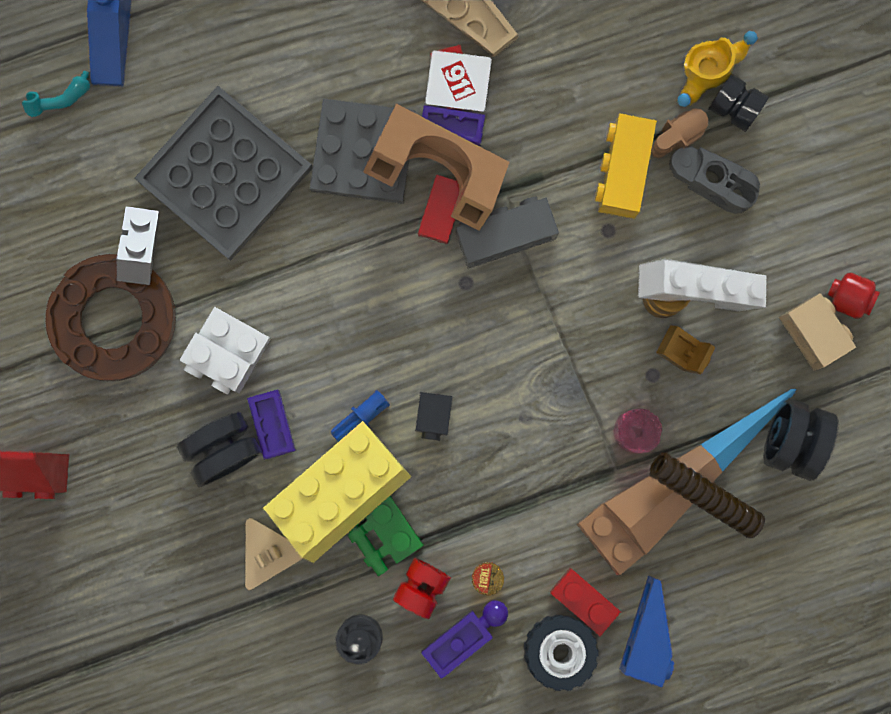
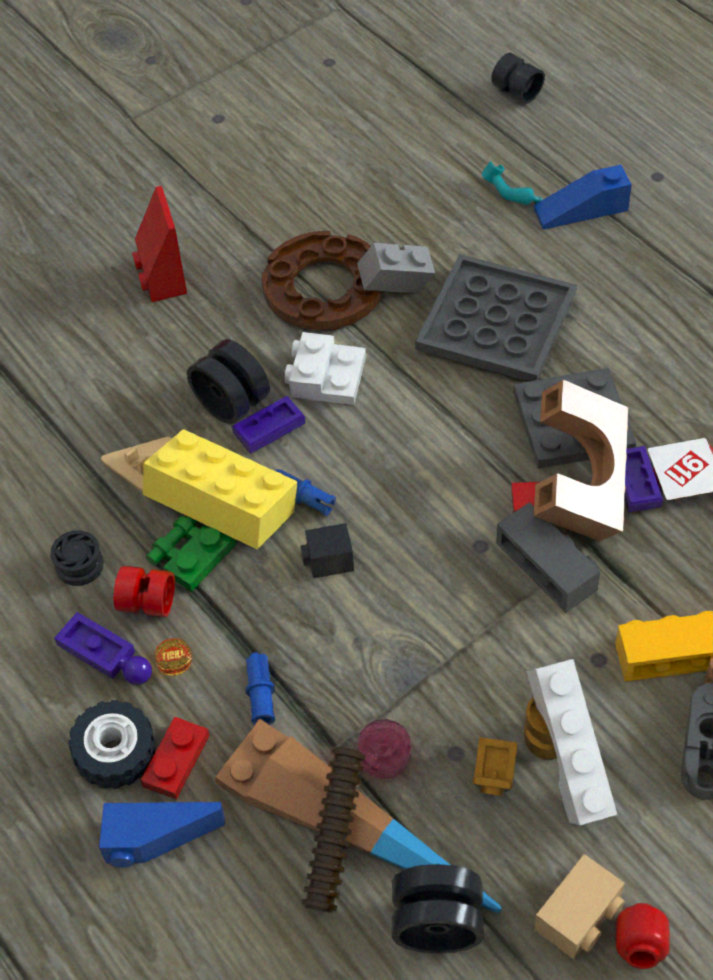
camera: 75 degrees right, 30 degrees down
(547, 514) = (260, 689): none -> blue axle

